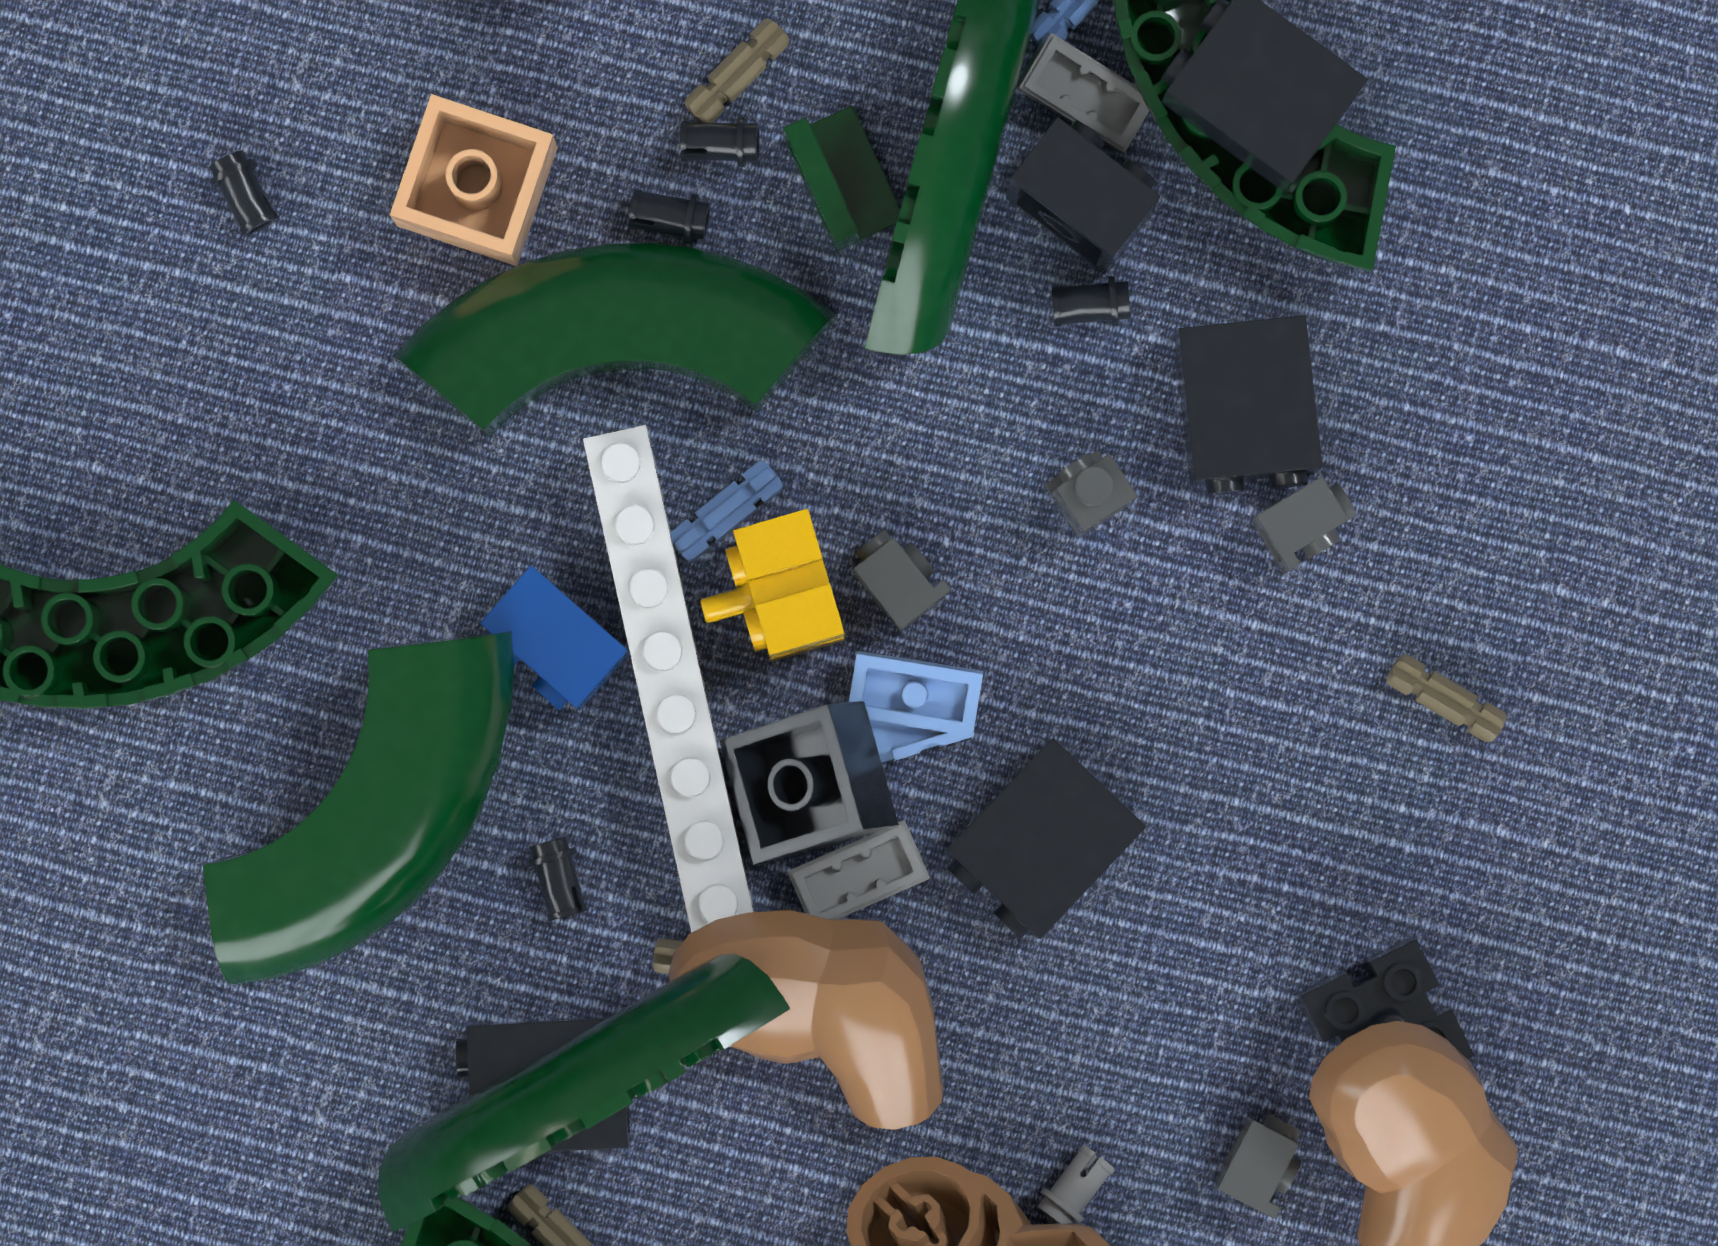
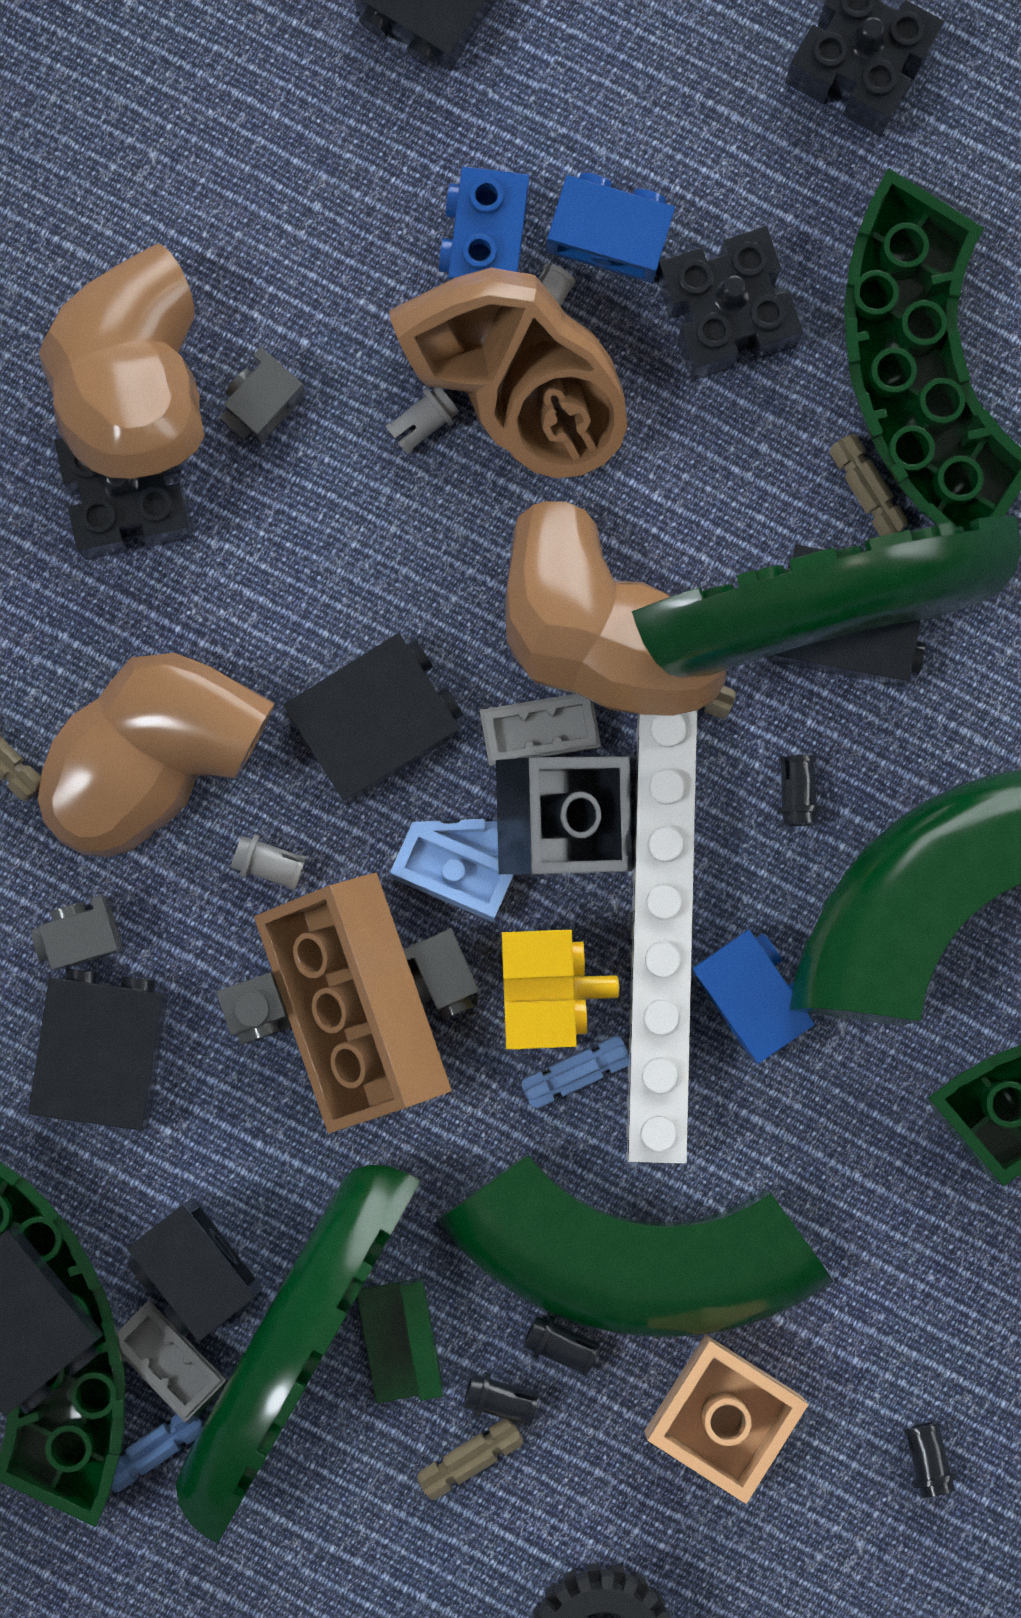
camera: 165 degrees left, 0 degrees up
(986, 520) = (352, 1002): none -> medium nougat brick
(1091, 303) = (211, 1174): black pin -> none
(1118, 654) = (268, 862): none -> light grey pin
(1289, 740) = (139, 748): none -> medium nougat piece

